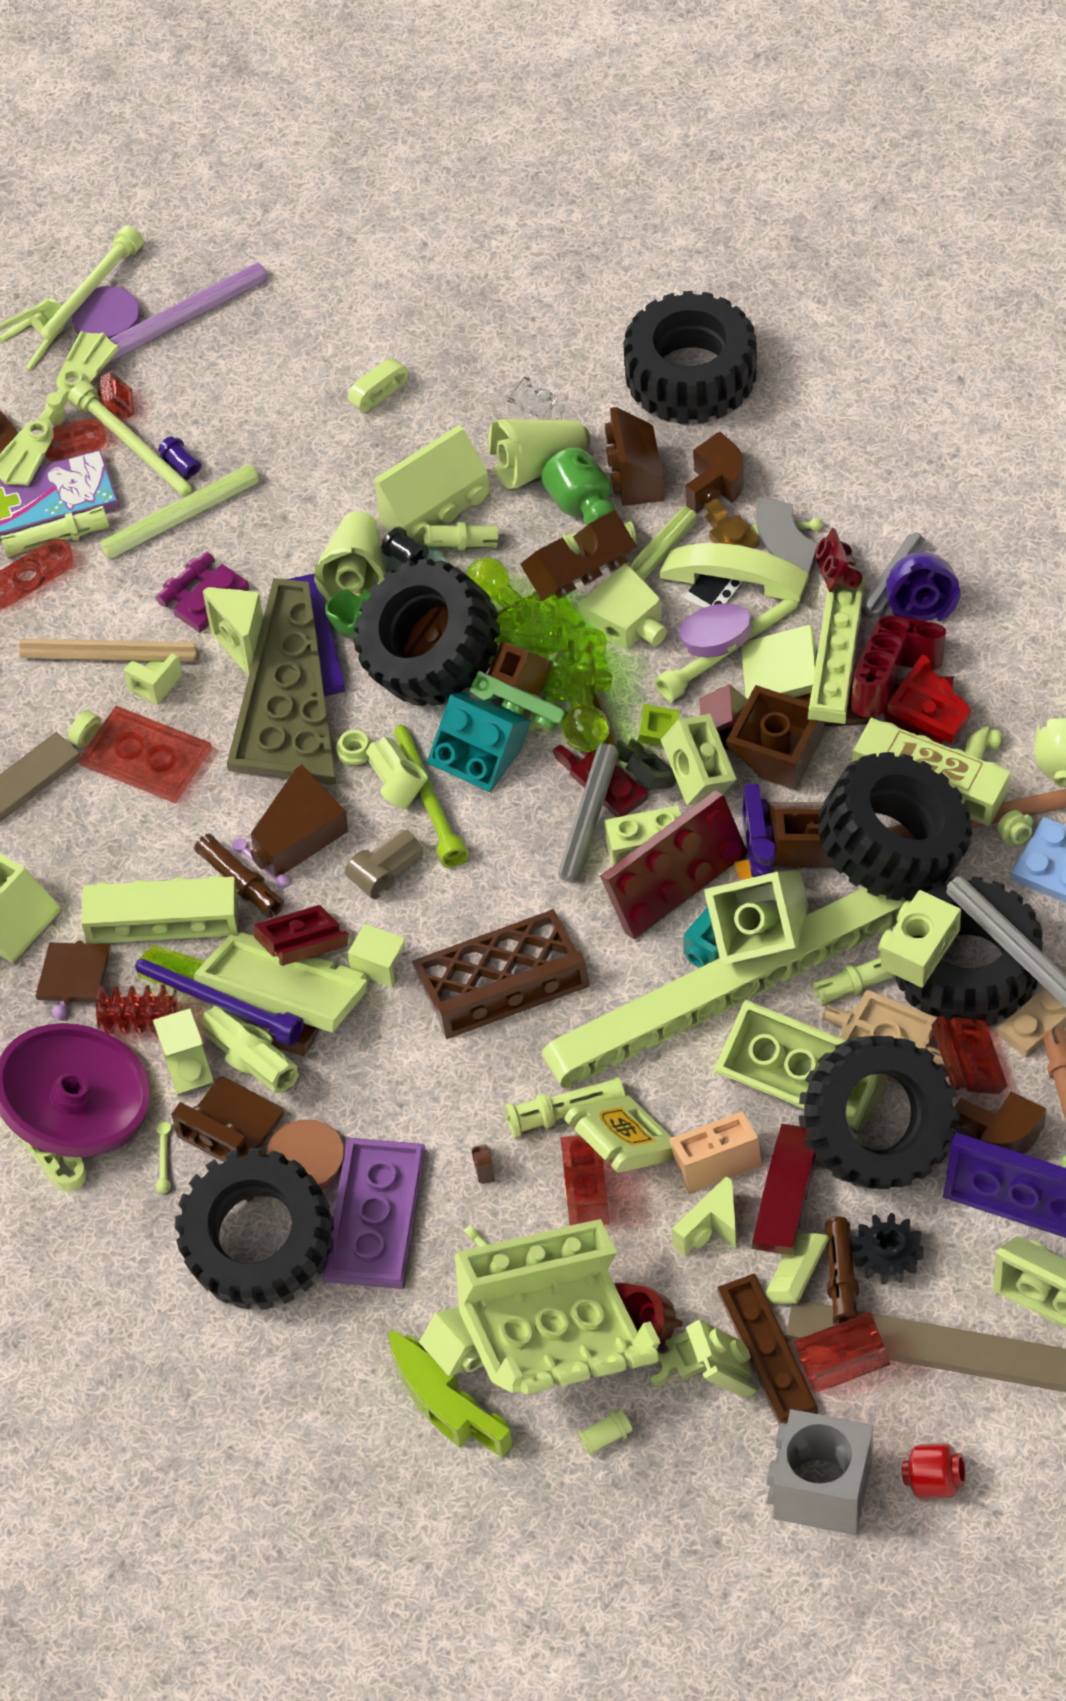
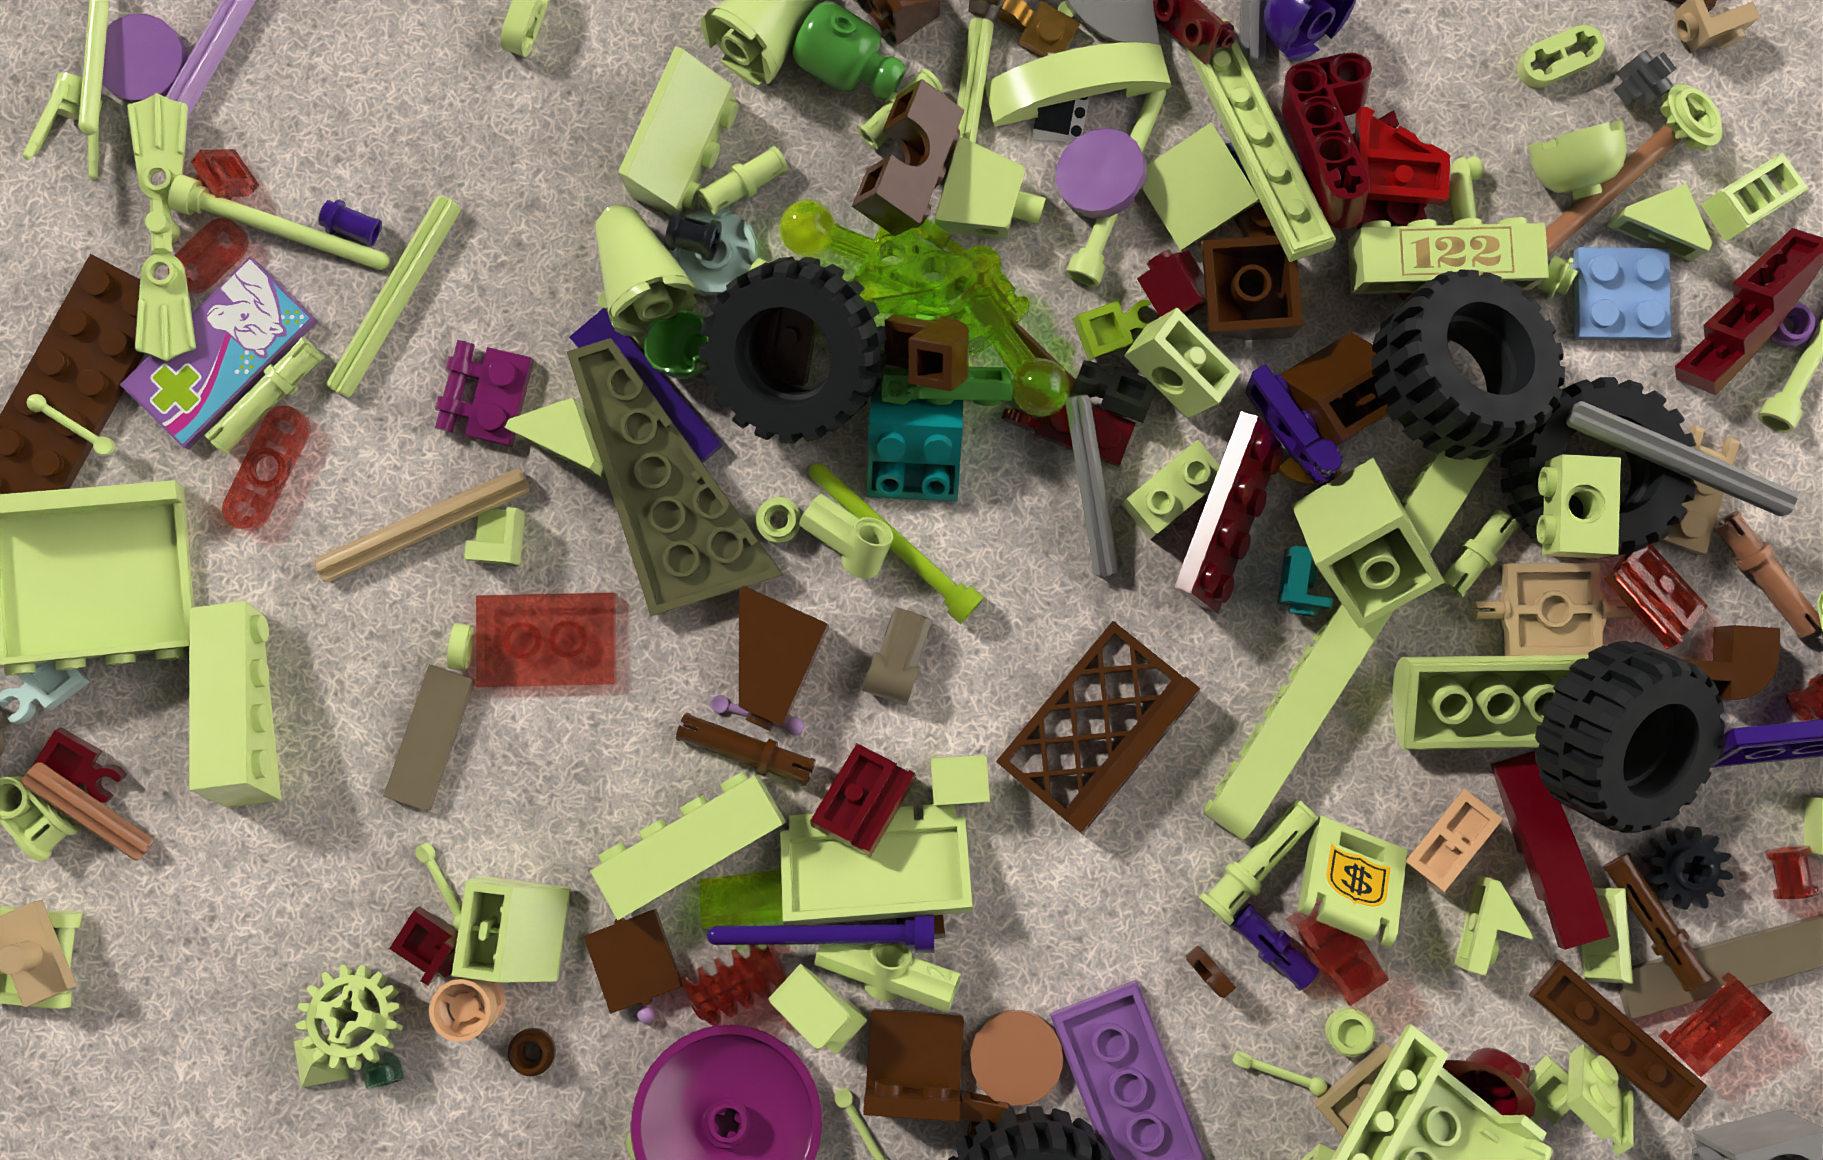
camera: 30 degrees left, 30 degrees up
(548, 1185) = (1295, 967): none -> dark purple pin
(969, 1289) = (1792, 872): none -> clear red bush

